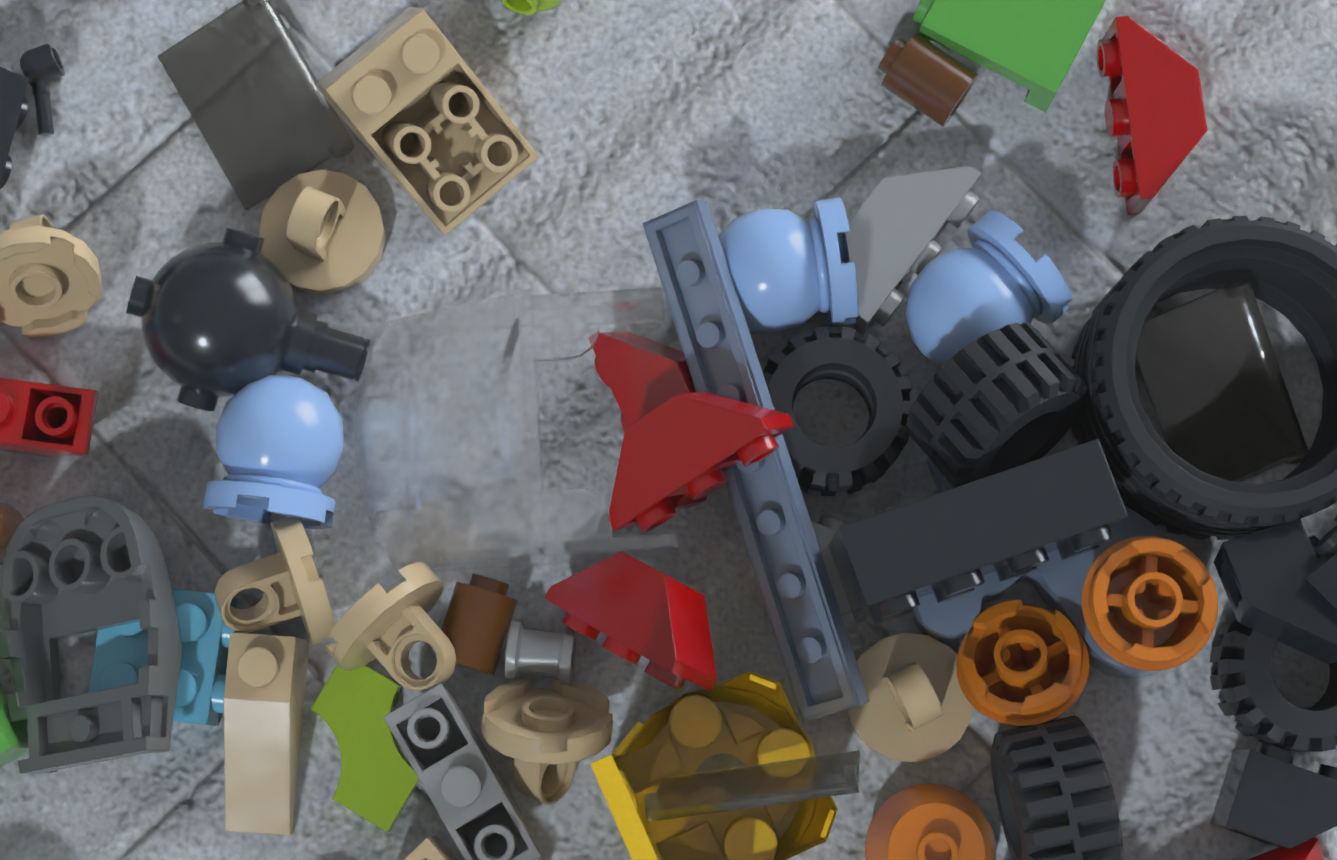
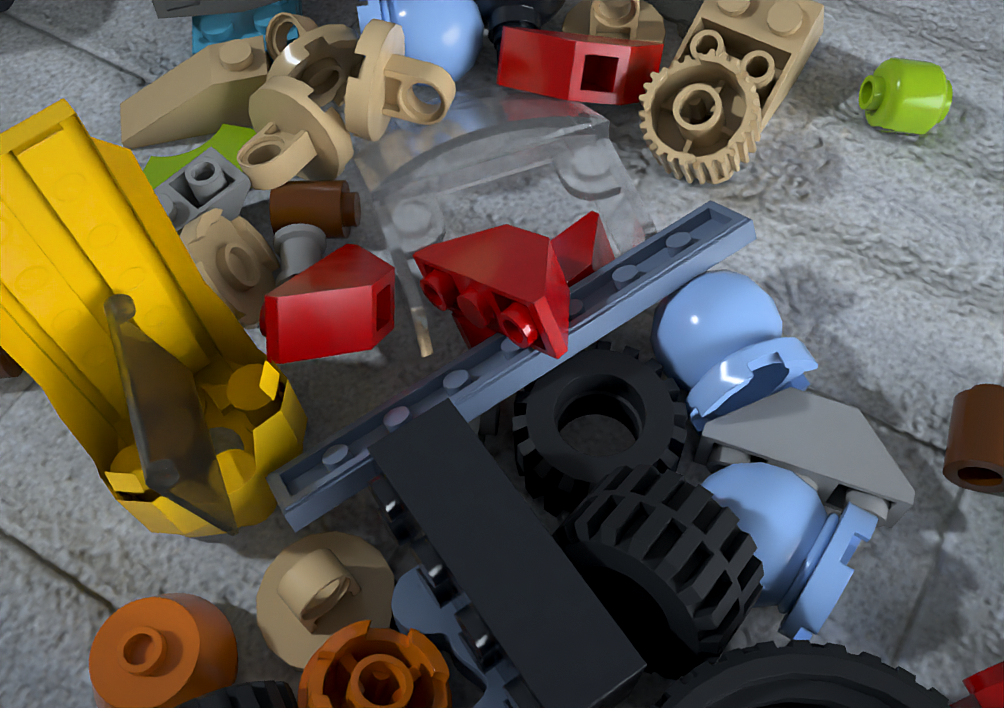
camera: 75 degrees right, 20 degrees down
(391, 496) = (387, 81): none -> tan tile
(400, 291) = (577, 65): none -> red slope
(547, 189) = (690, 91): none -> tan brick

